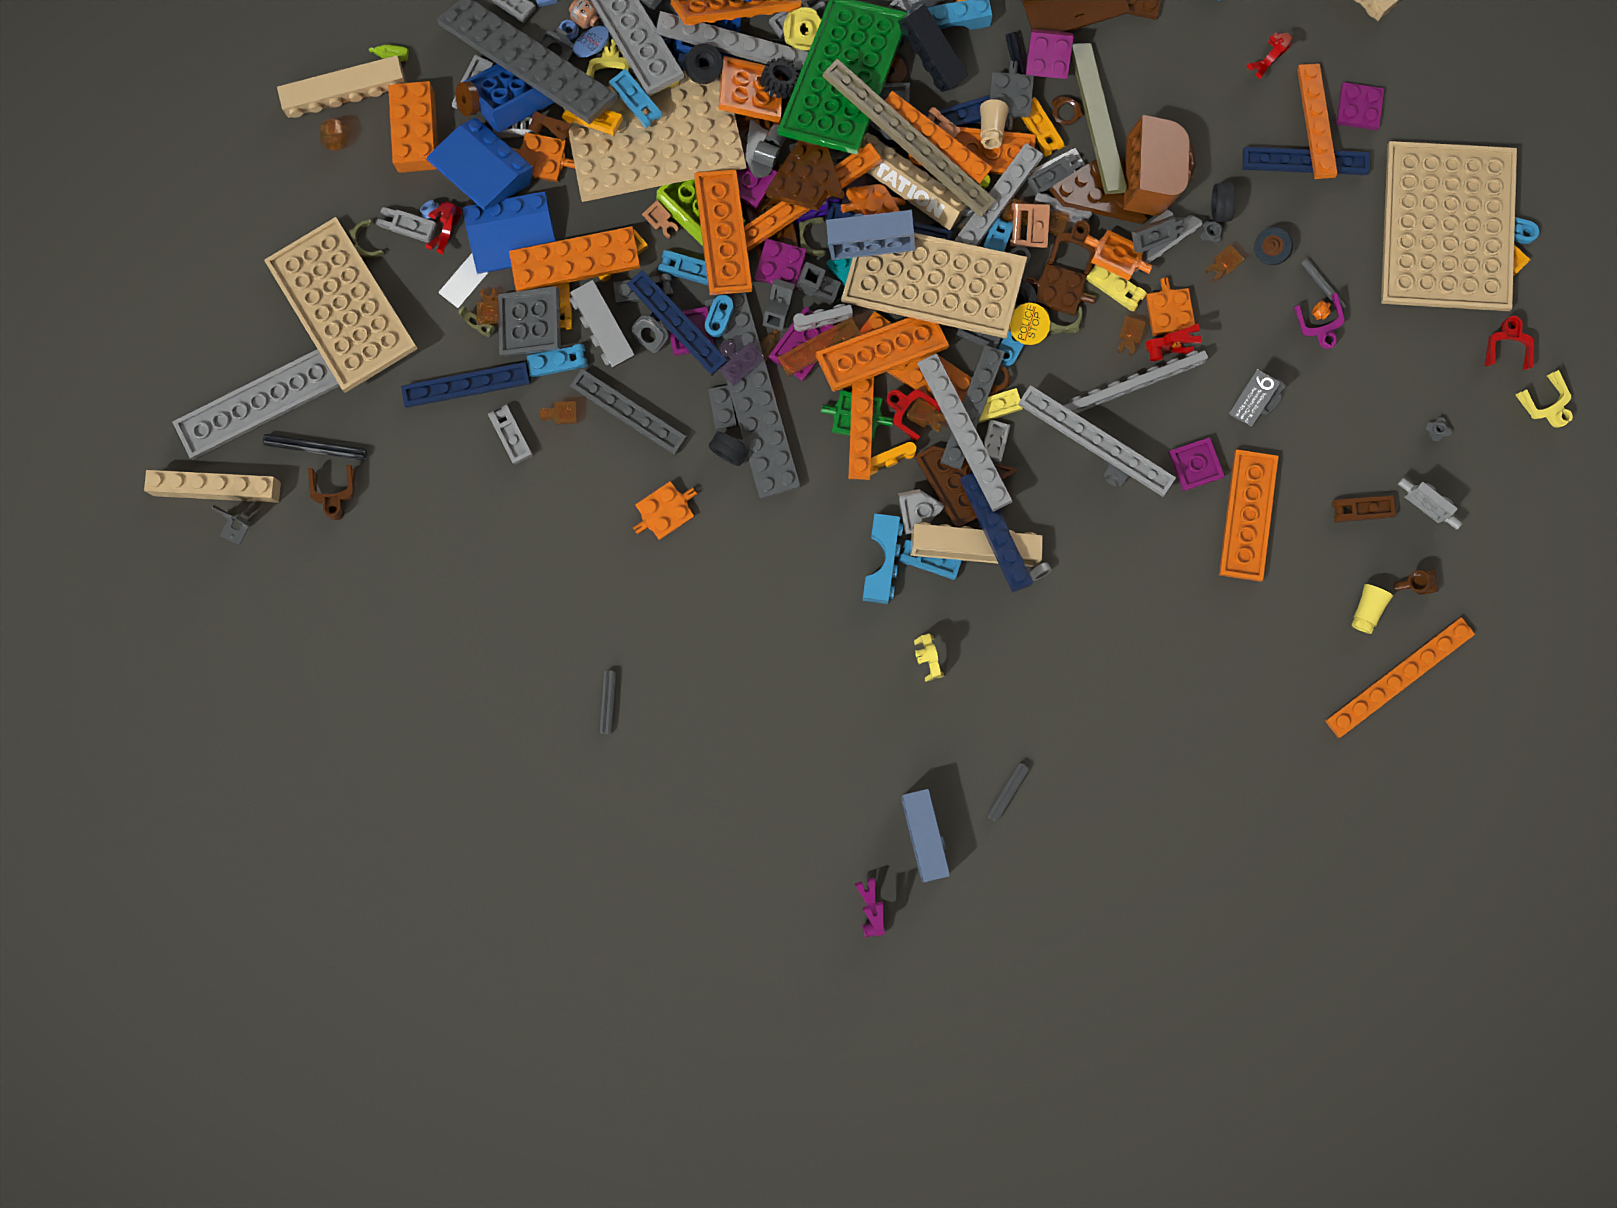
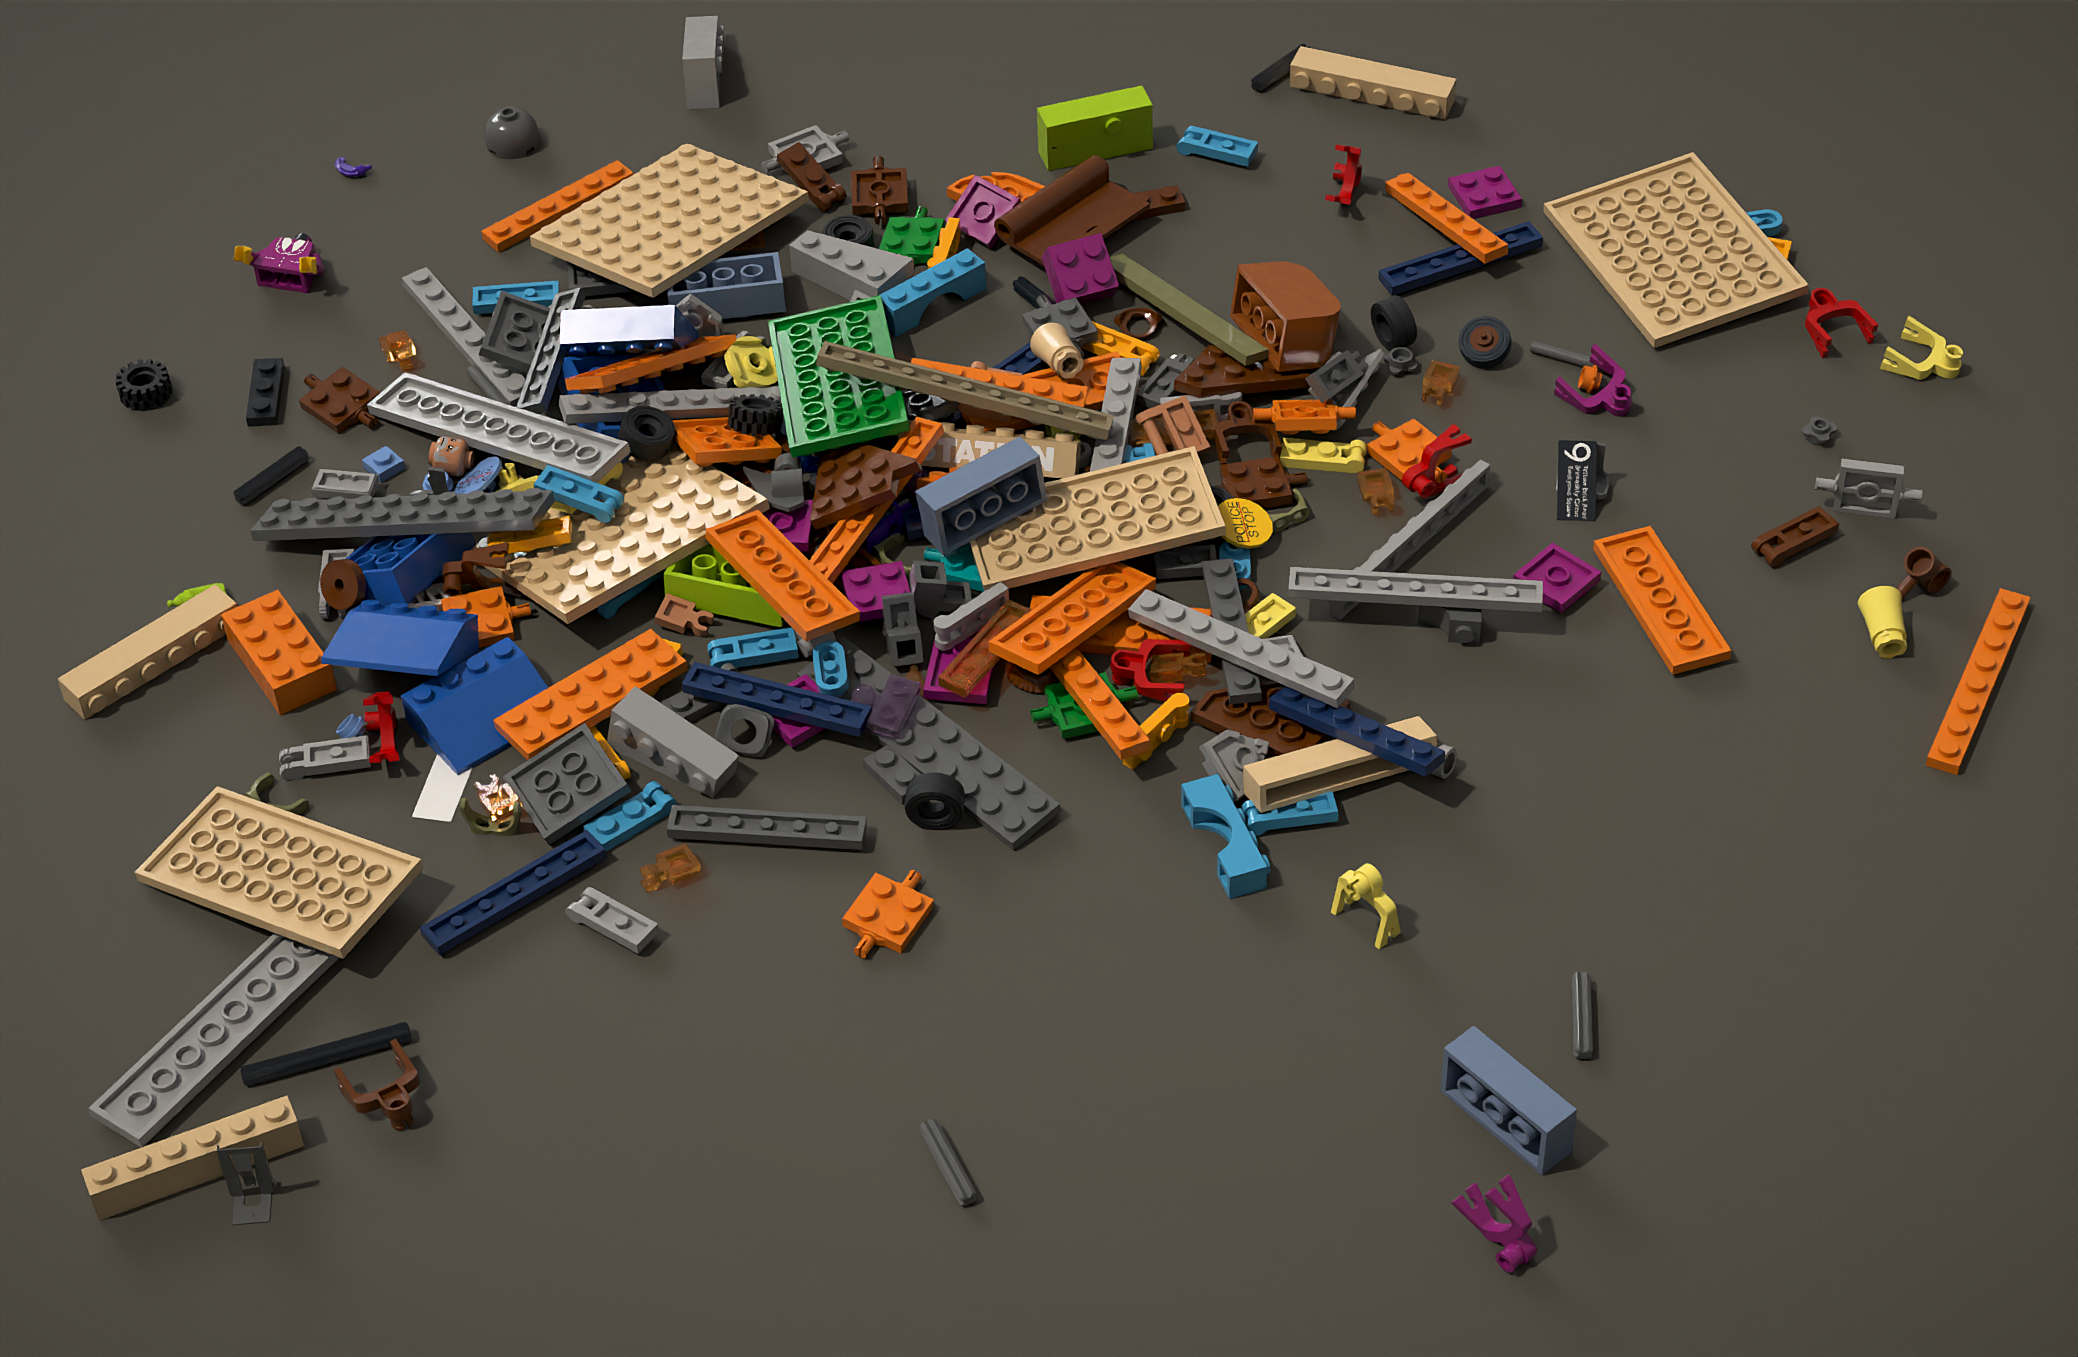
camera: 30 degrees left, 35 degrees down
(333, 134) = (165, 703): clear orange head -> none
(932, 48) = (933, 313): black brick -> none

